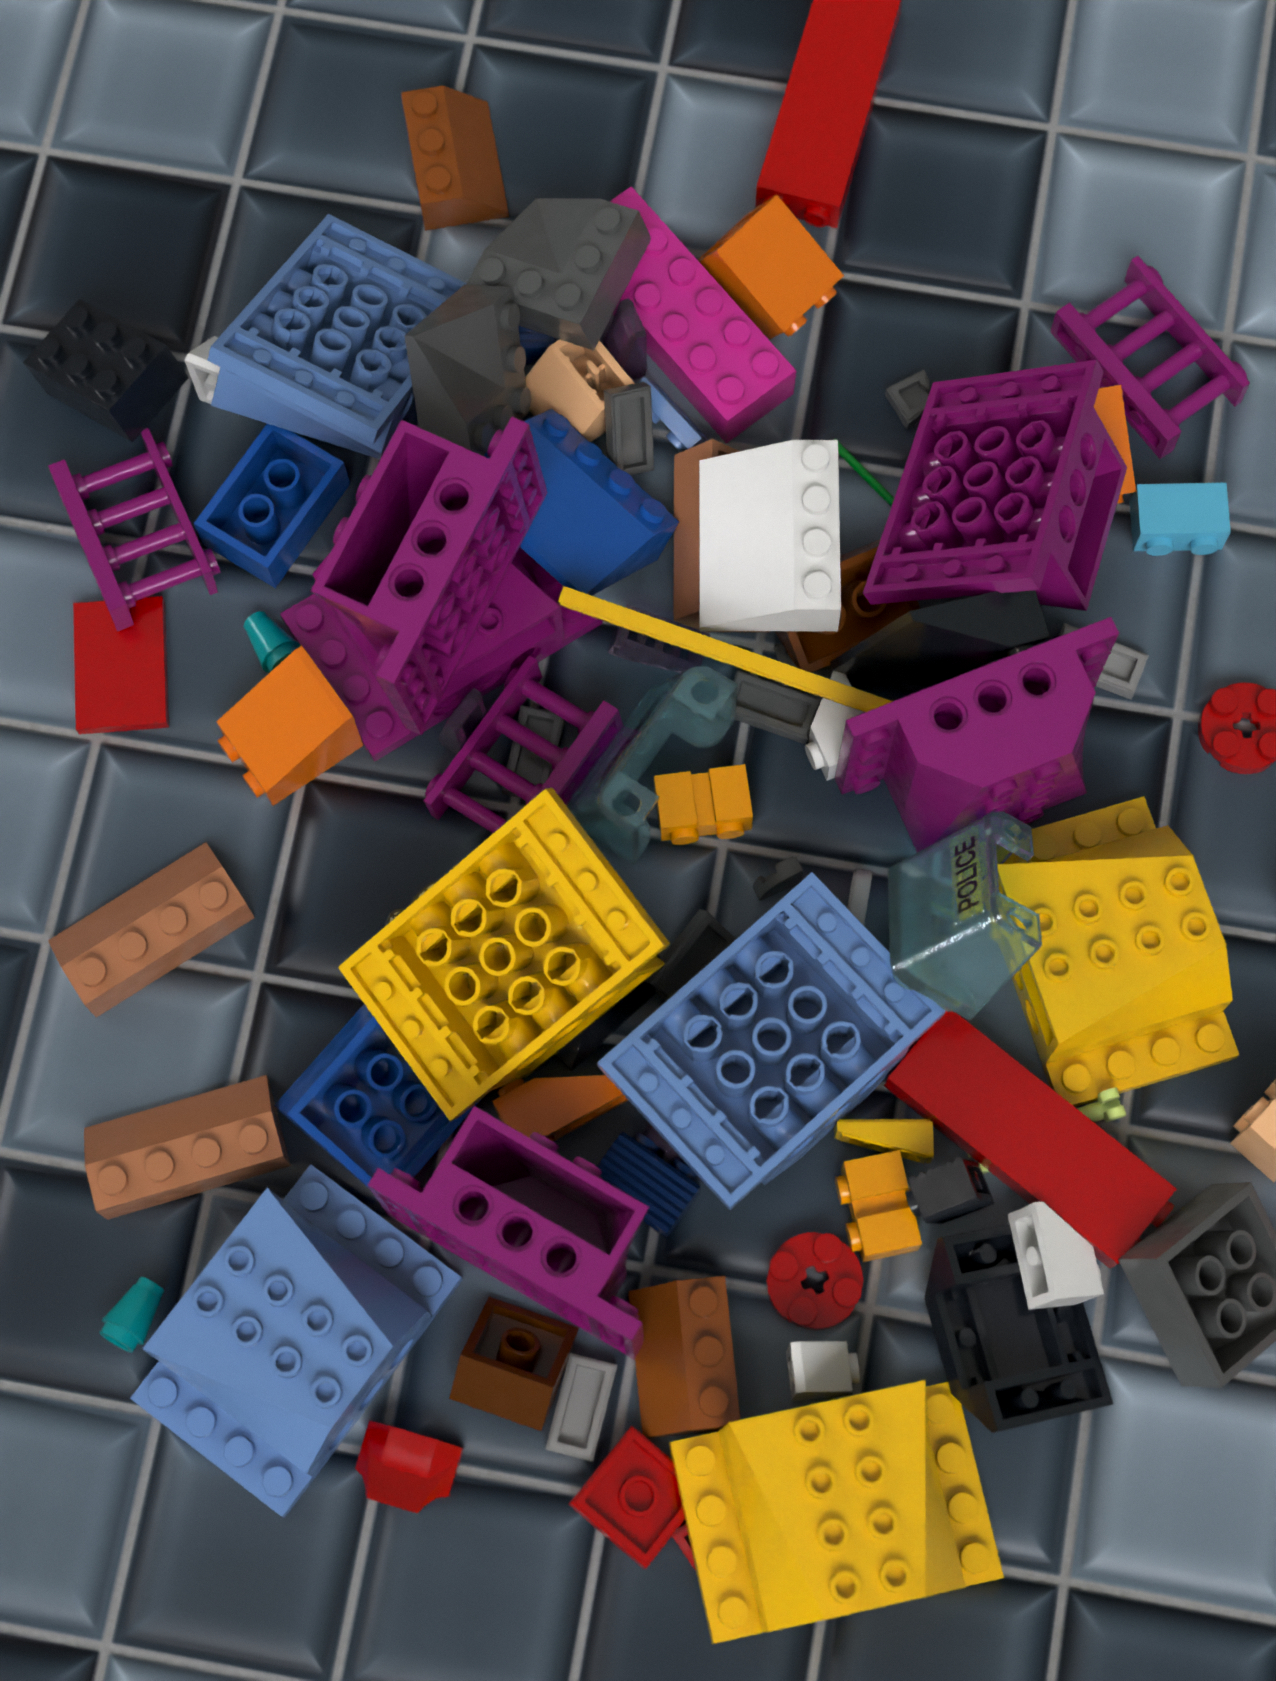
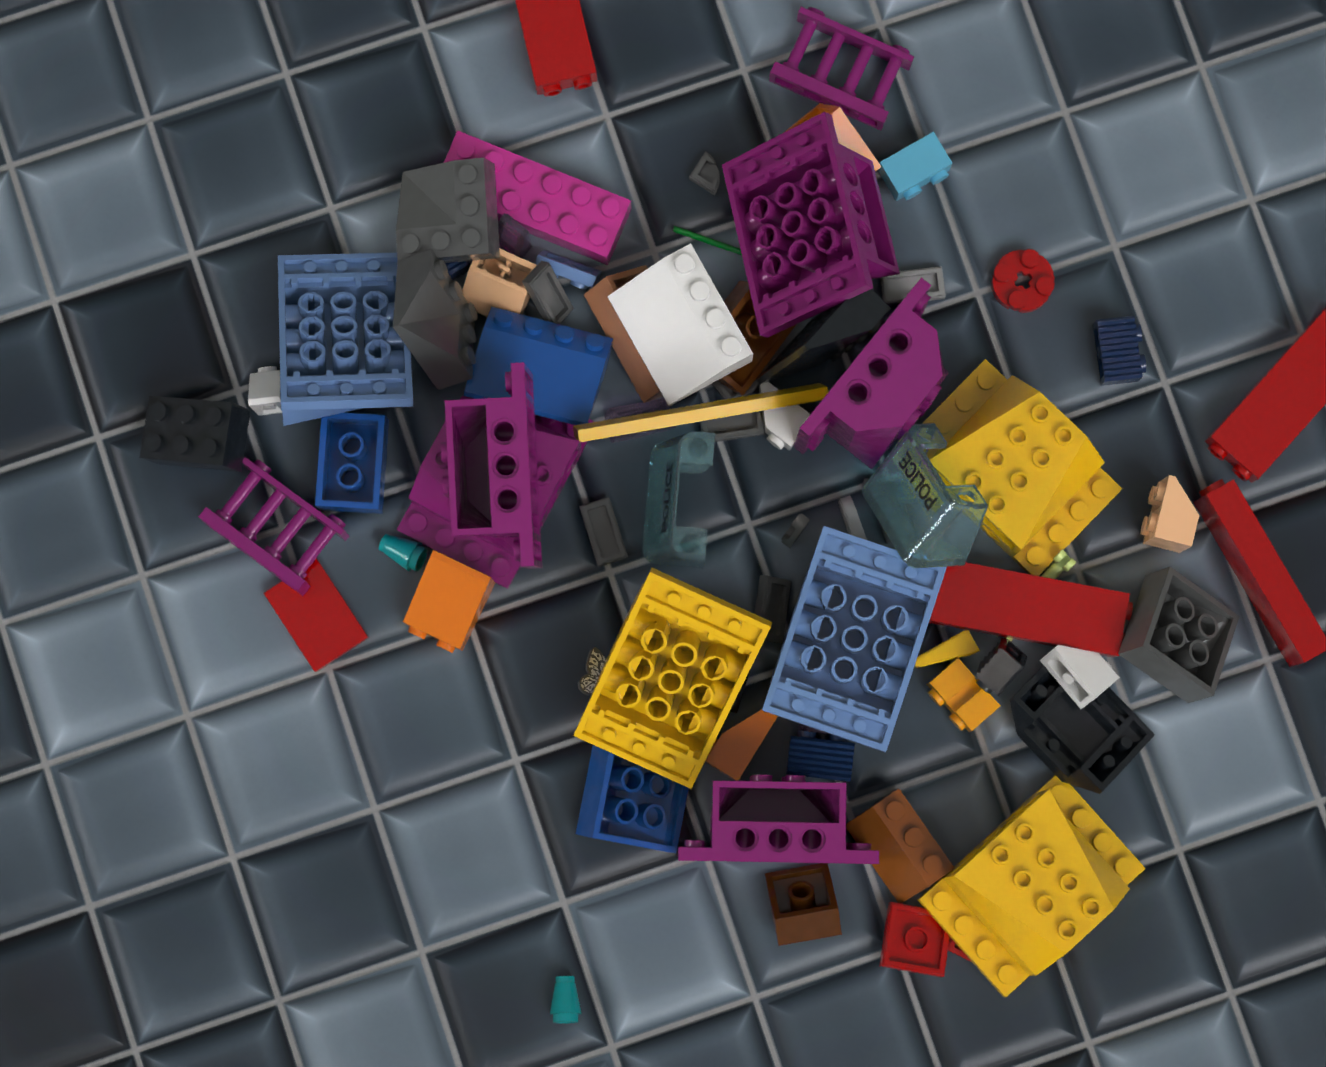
camera: 30 degrees left, 10 degrees up
(150, 930) = (434, 768): nougat slope -> none
(184, 1148) = (535, 886): nougat slope -> none
(291, 1336) = (668, 960): medium blue wedge -> none
(406, 1467) = (774, 997): red slope -> none
(454, 157) = (327, 166): dark orange slope -> none
(463, 721) = (553, 539): clear purple slope -> none
(569, 765) = (631, 529): magenta fence -> none
(581, 1407) = (854, 906): light grey tile -> none
(703, 804) = (726, 508): light orange brick -> none
(772, 268) = (573, 136): orange slope -> none
(821, 1369) = (981, 810): white slope -> none
(825, 1255) = (966, 757): red plate -> none

